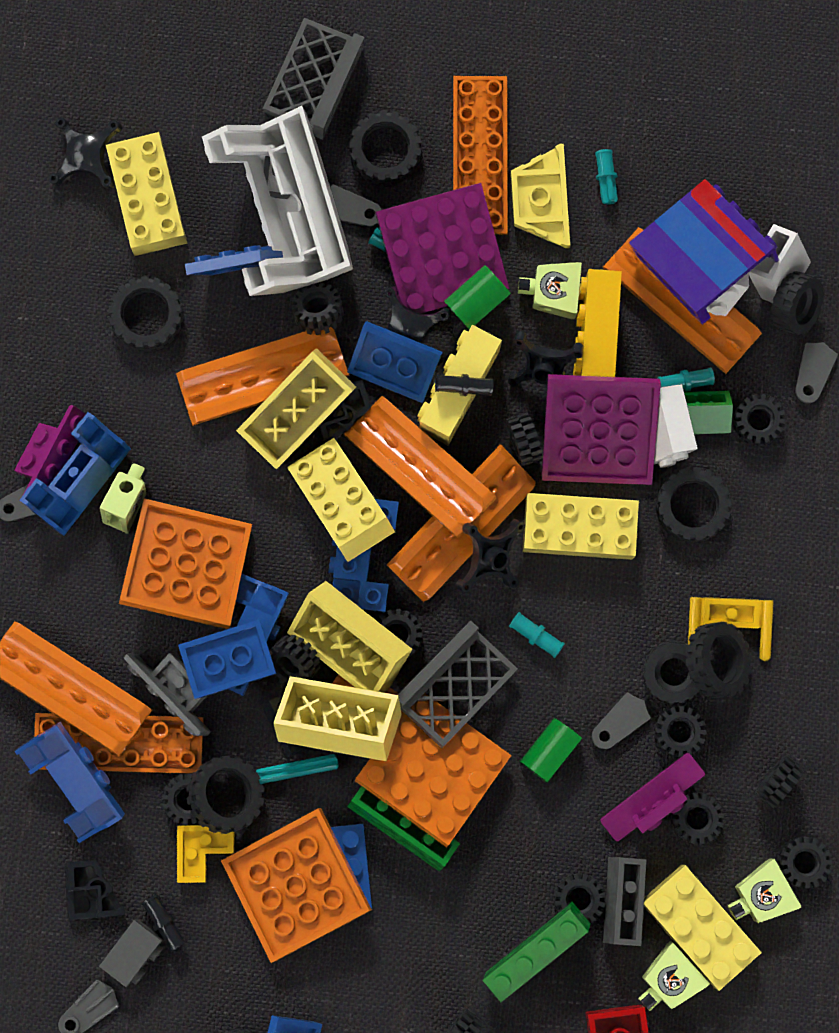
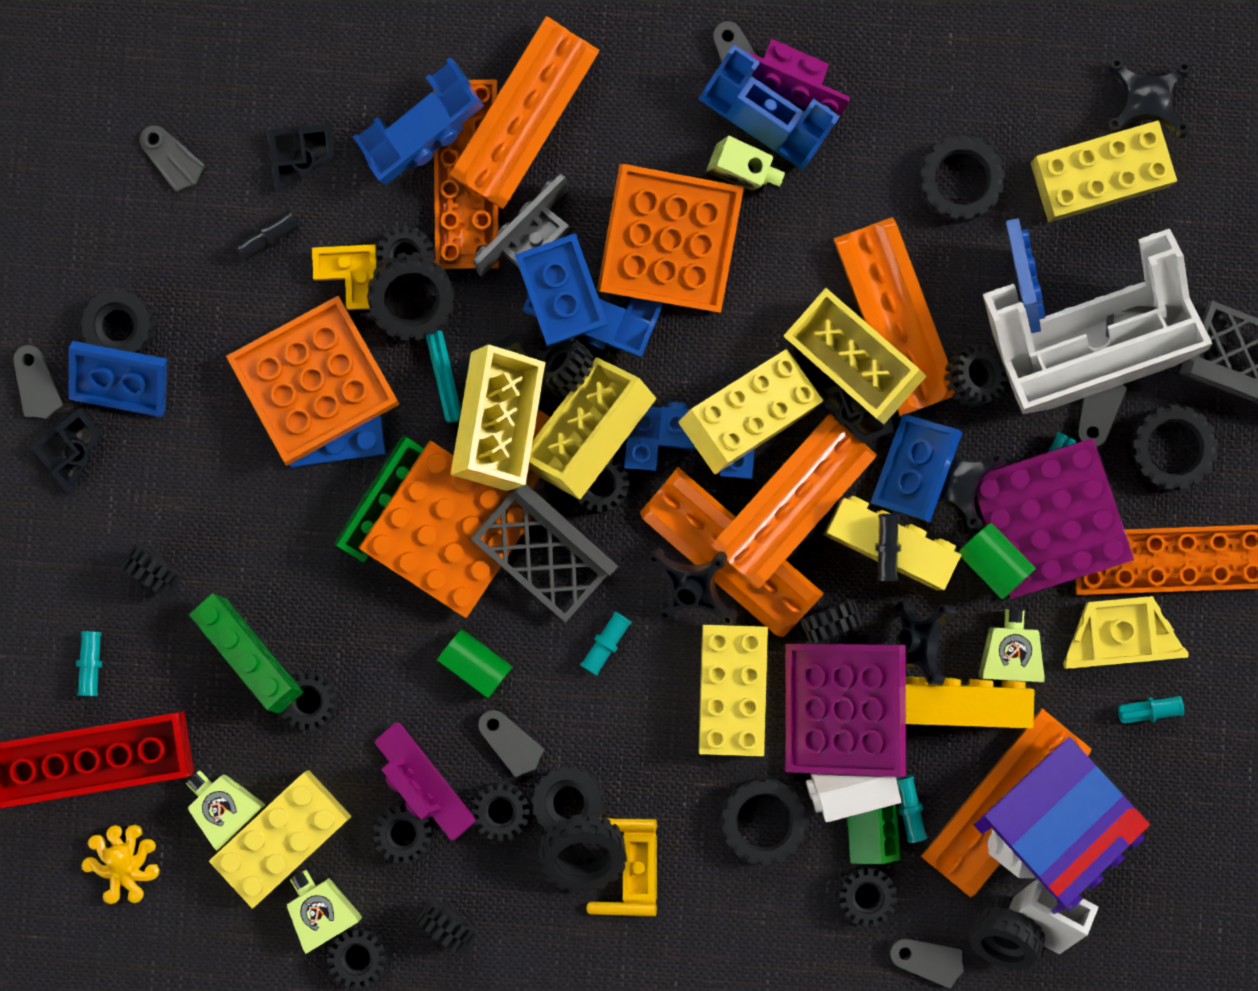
camera: 90 degrees right, 5 degrees up
(131, 953) = (233, 202): dark grey brick -> none
(624, 901) = (306, 751): dark grey brick -> none

